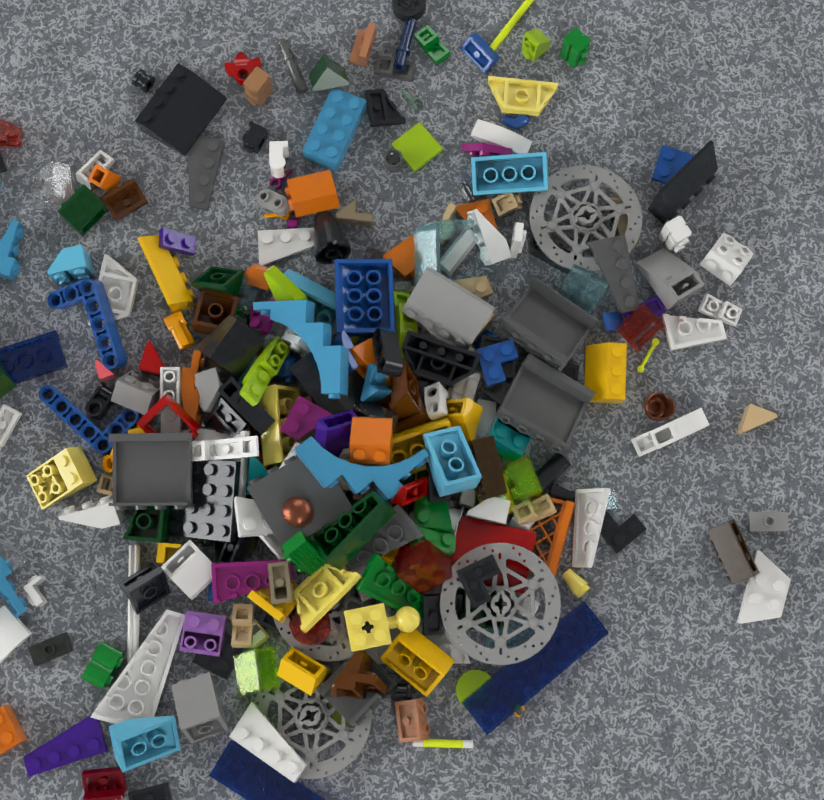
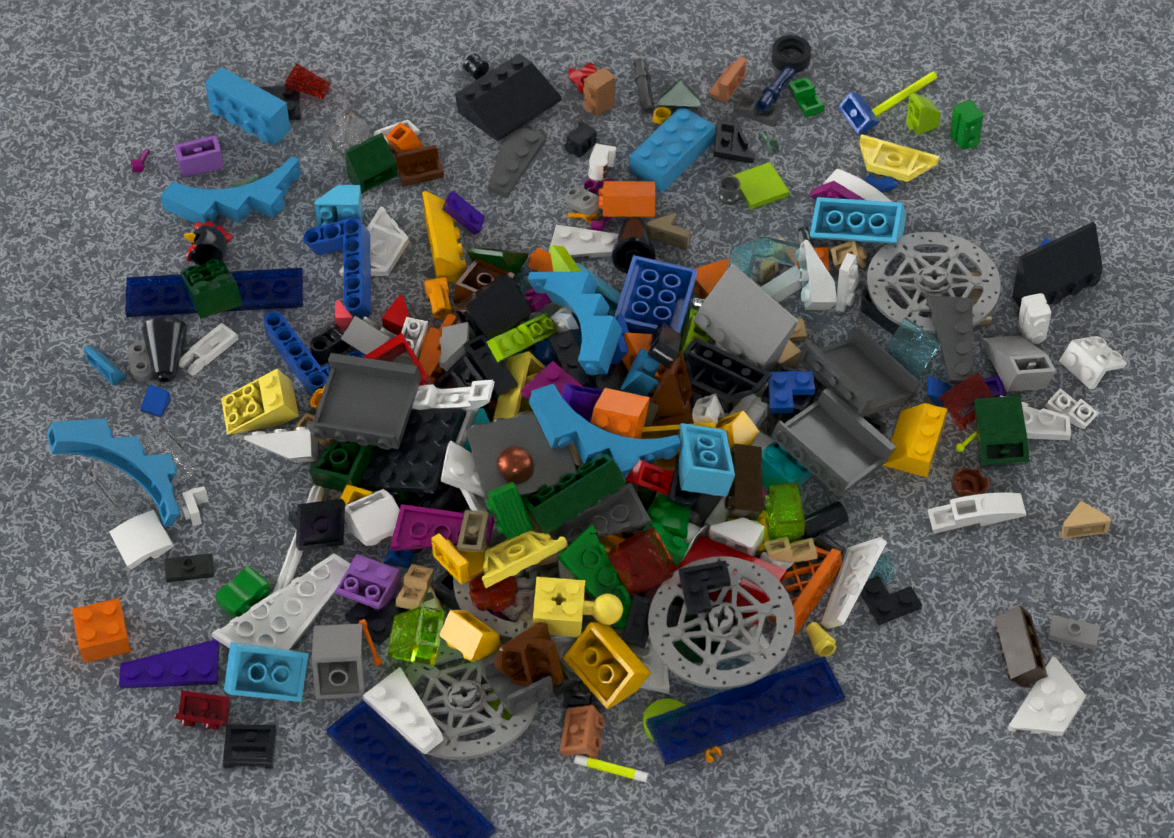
camera: 20 degrees right, 25 degrees down
(230, 695) = (377, 661): none -> orange hinge
(318, 100) = (659, 113): none -> yellow plate
(674, 354) = (1001, 432): none -> dark green slope

